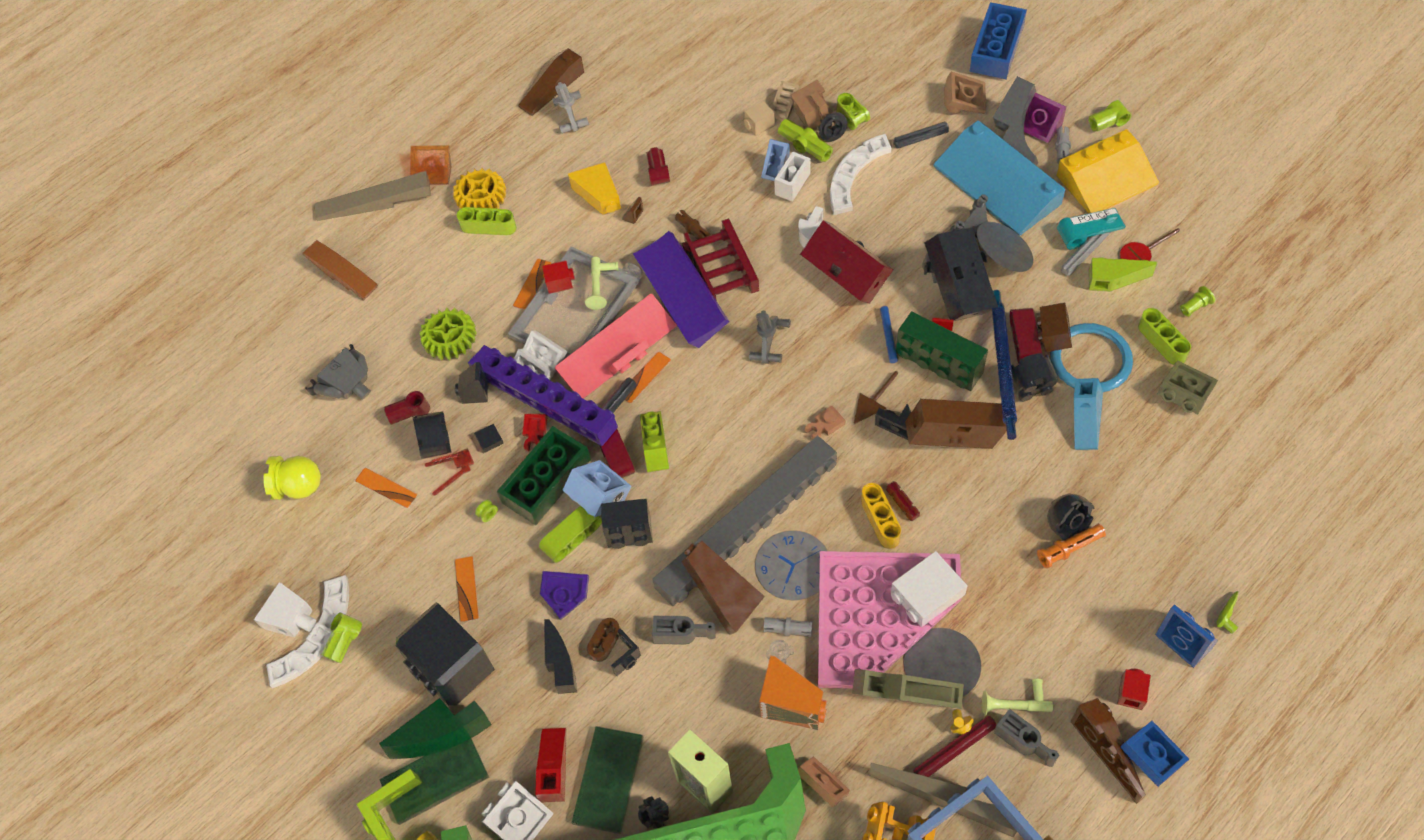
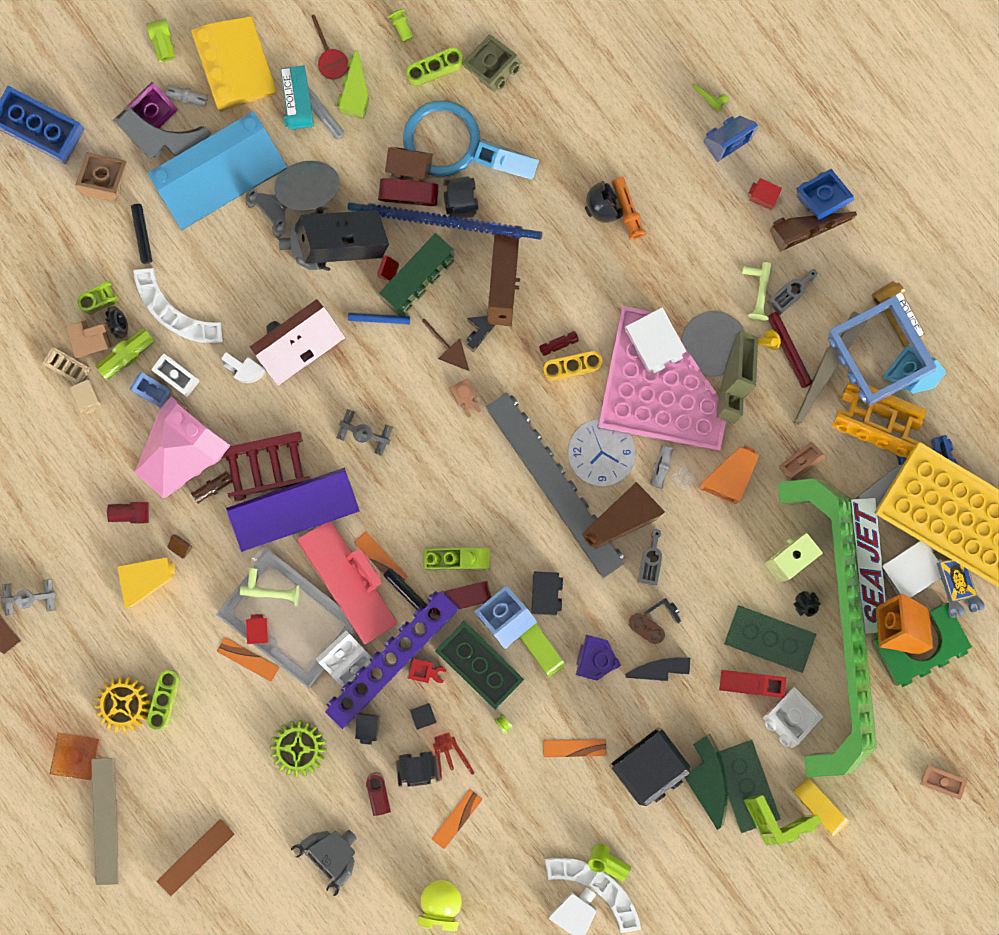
camera: 90 degrees left, 25 degrees up
(723, 189) = (177, 449): none -> bright pink wedge

